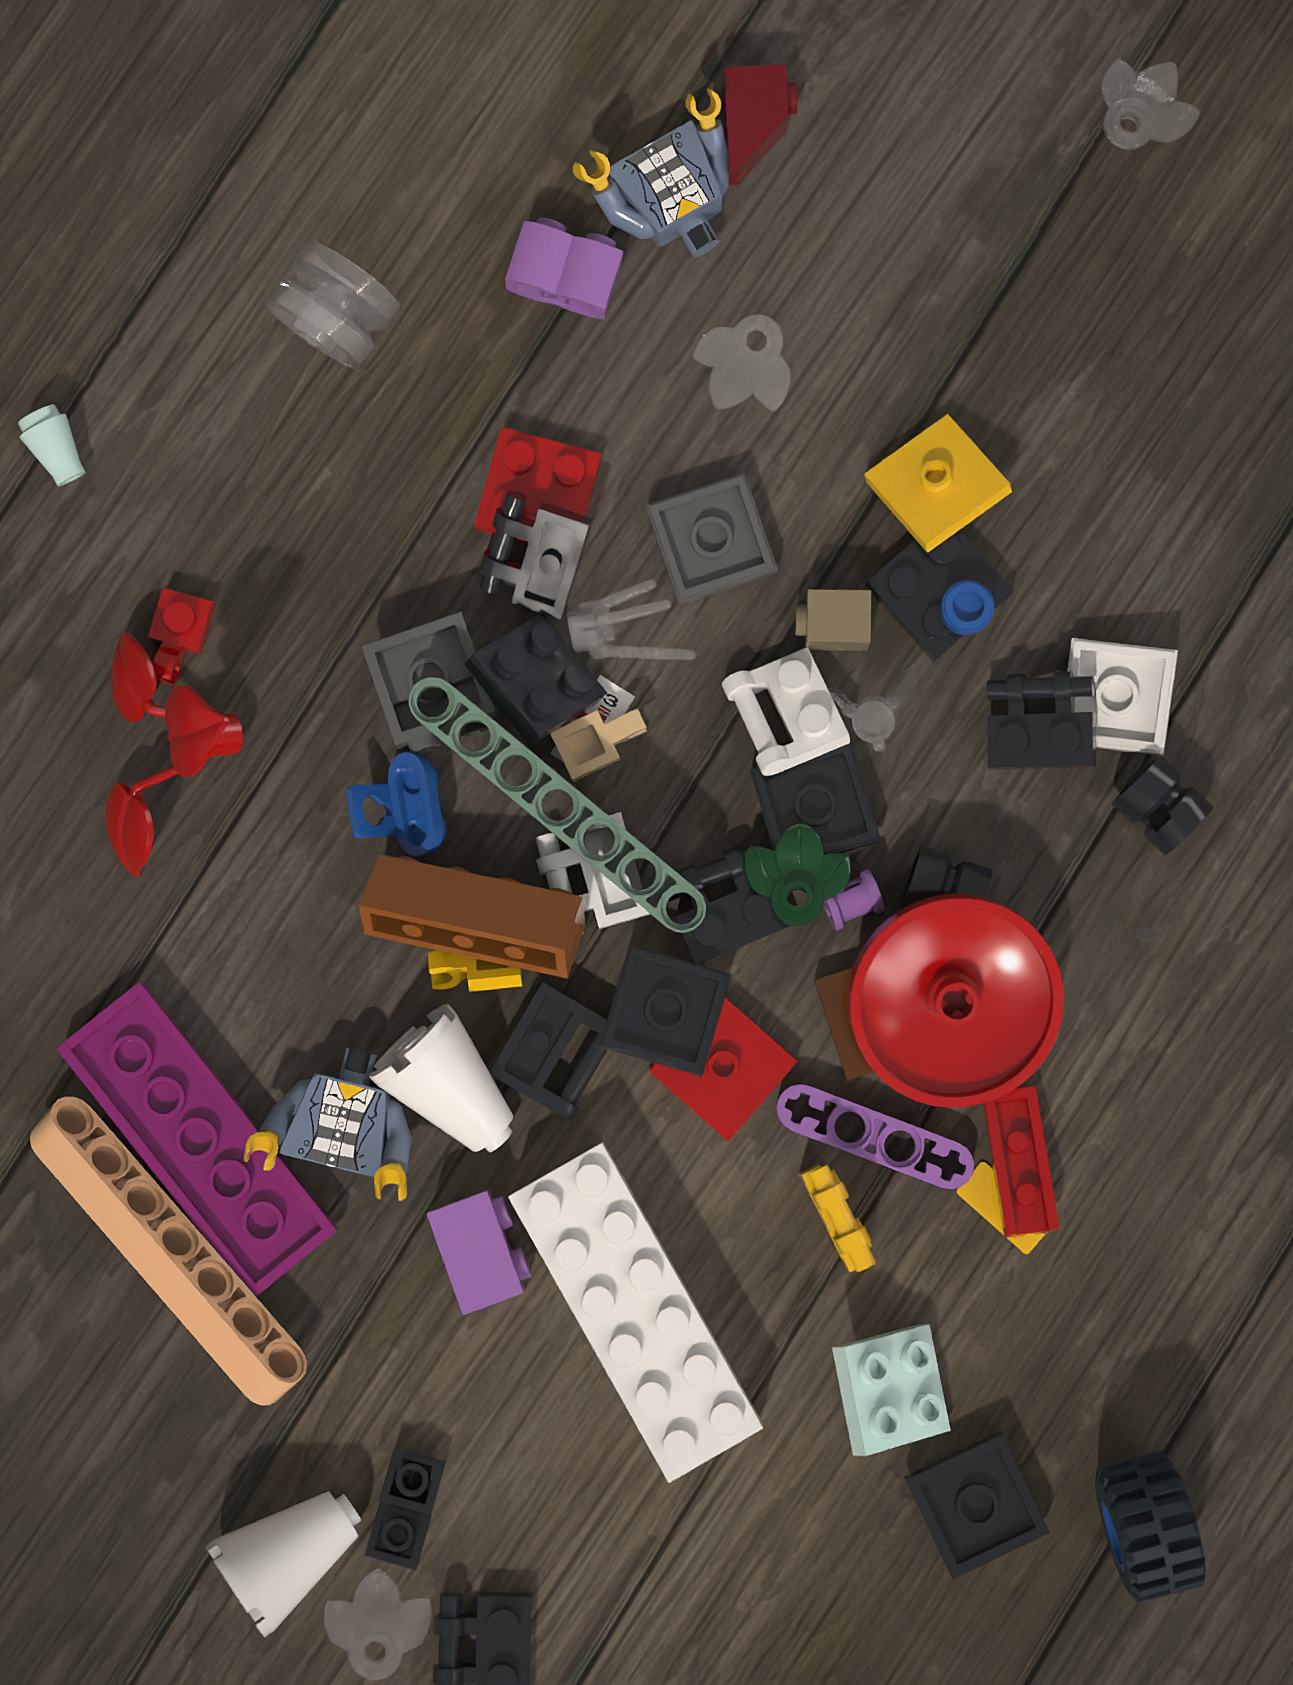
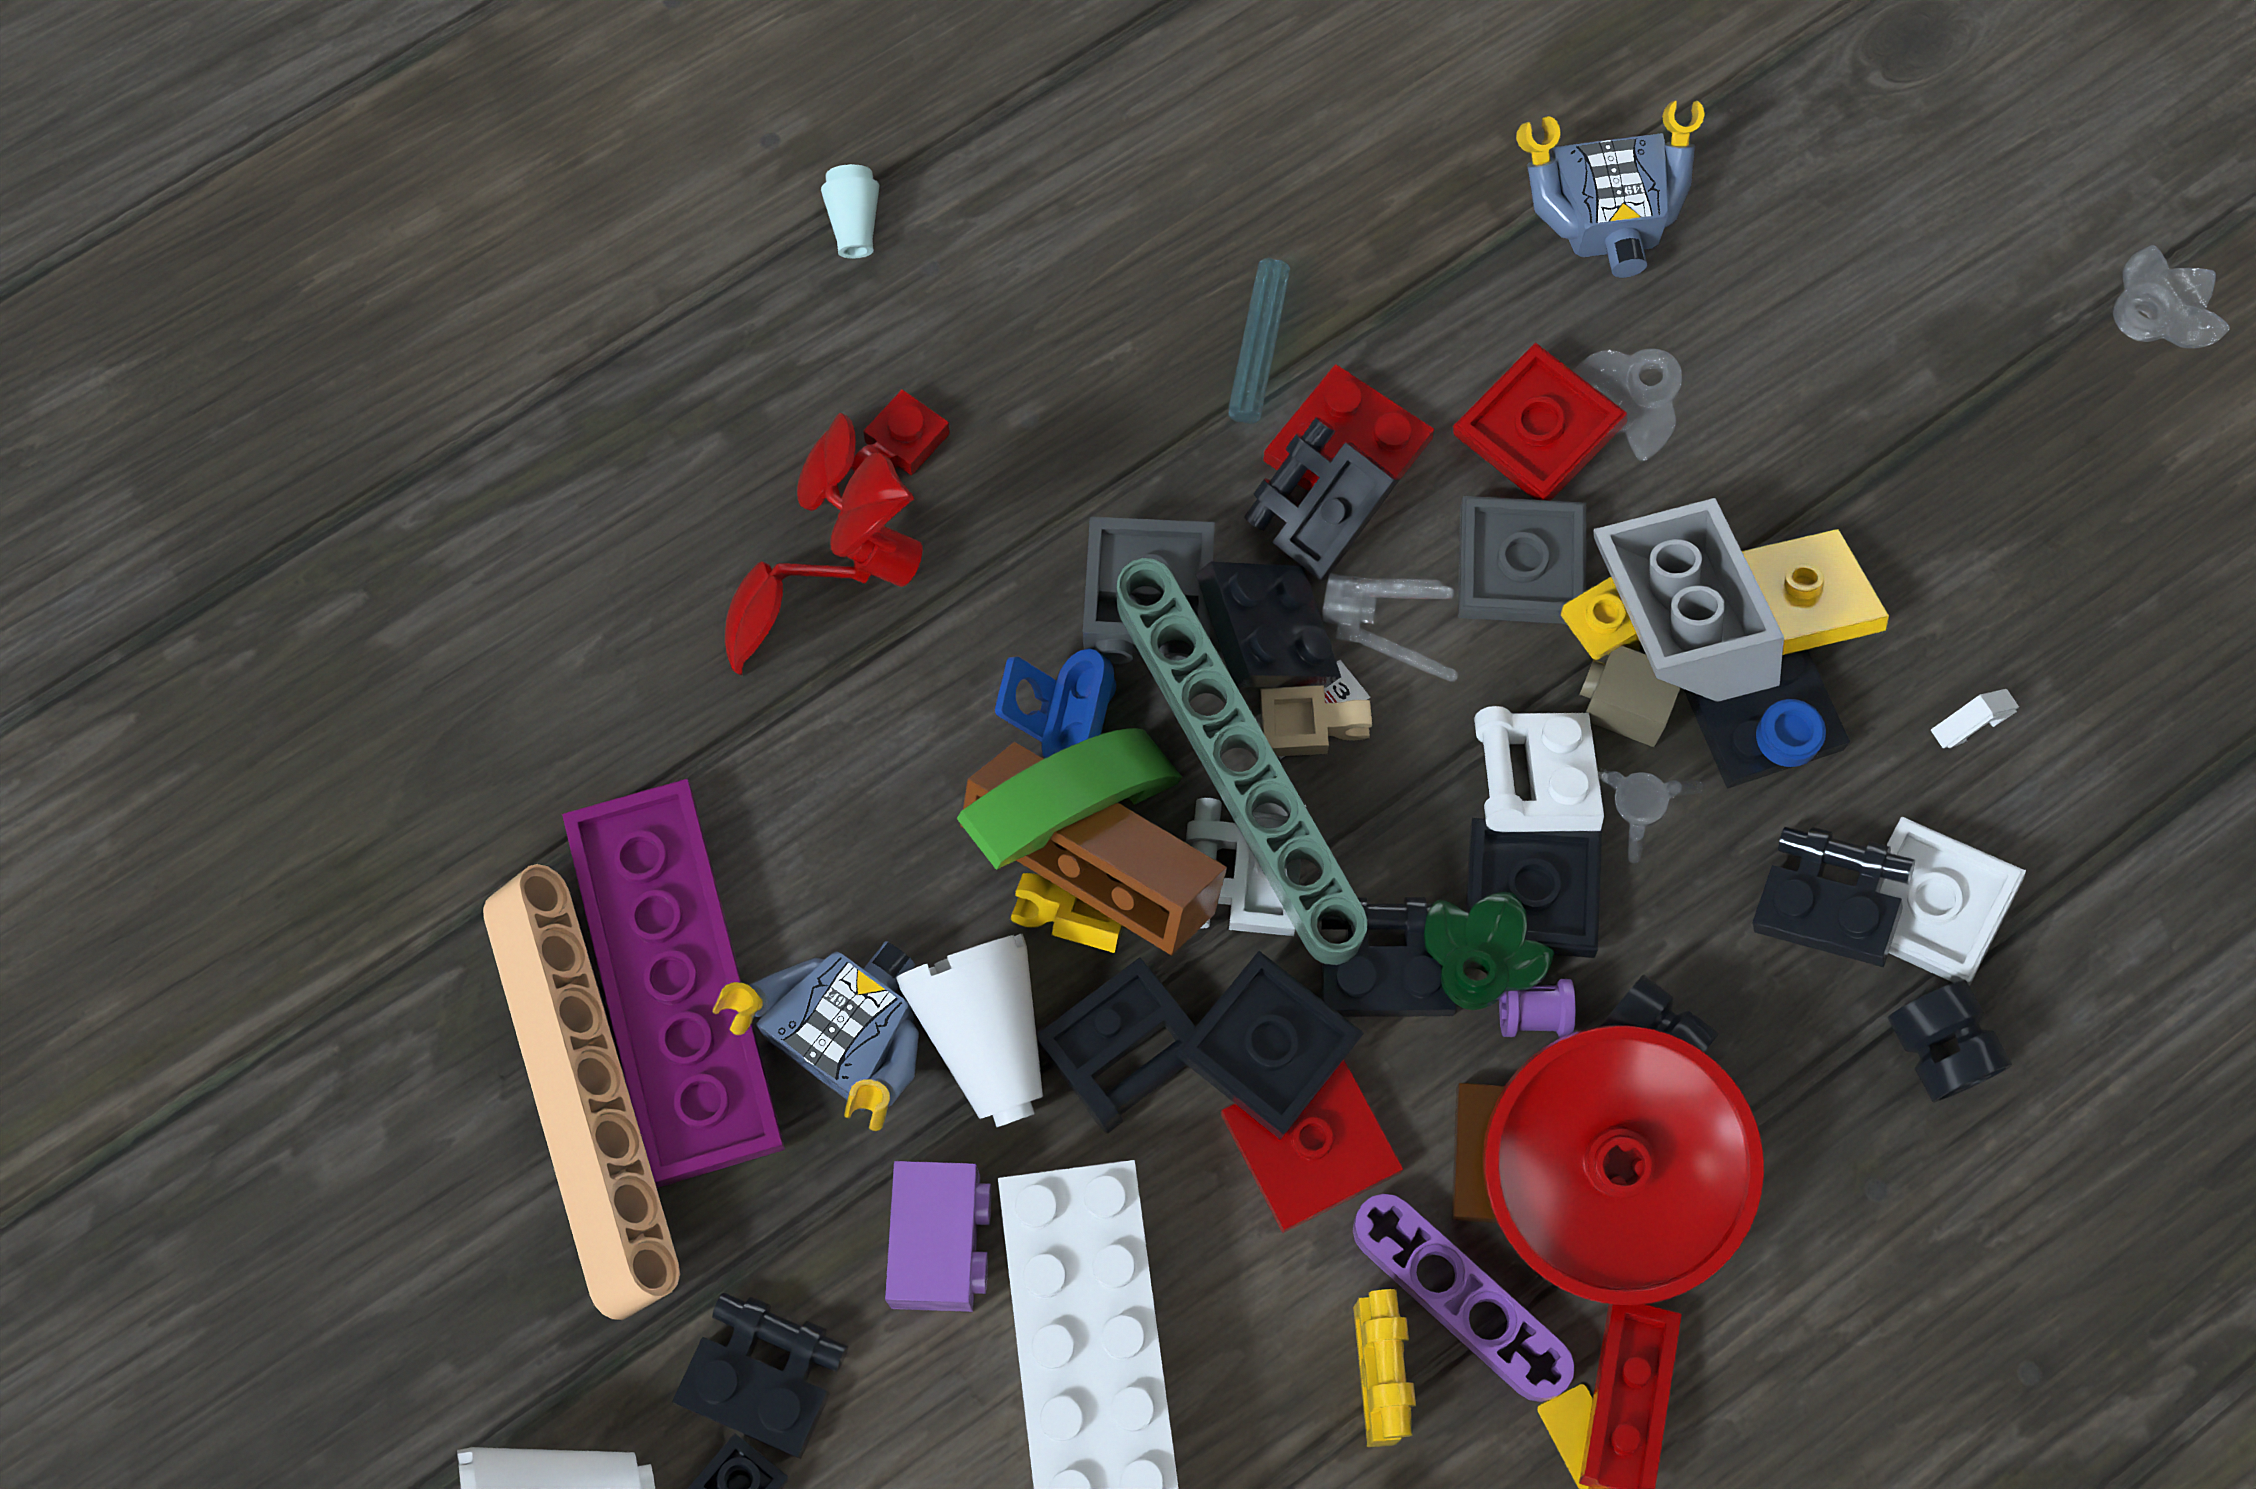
camera: 20 degrees right, 15 degrees down
(333, 304) = (1207, 171): clear wheel -> none
(394, 1414) = (752, 1395): none -> black plate
(431, 428) = (1259, 341): none -> clear light blue axle
(439, 884) = (1065, 789): none -> bright green slope
(564, 268) = (1467, 234): medium lavender brick -> none
(683, 415) = (1540, 424): none -> red plate
(755, 114) = (1732, 159): dark red slope -> none
(795, 572) = (1601, 620): none -> yellow bracket
(854, 534) = (1694, 601): none -> light grey slope
(1103, 533) = (1983, 709): none -> white tile

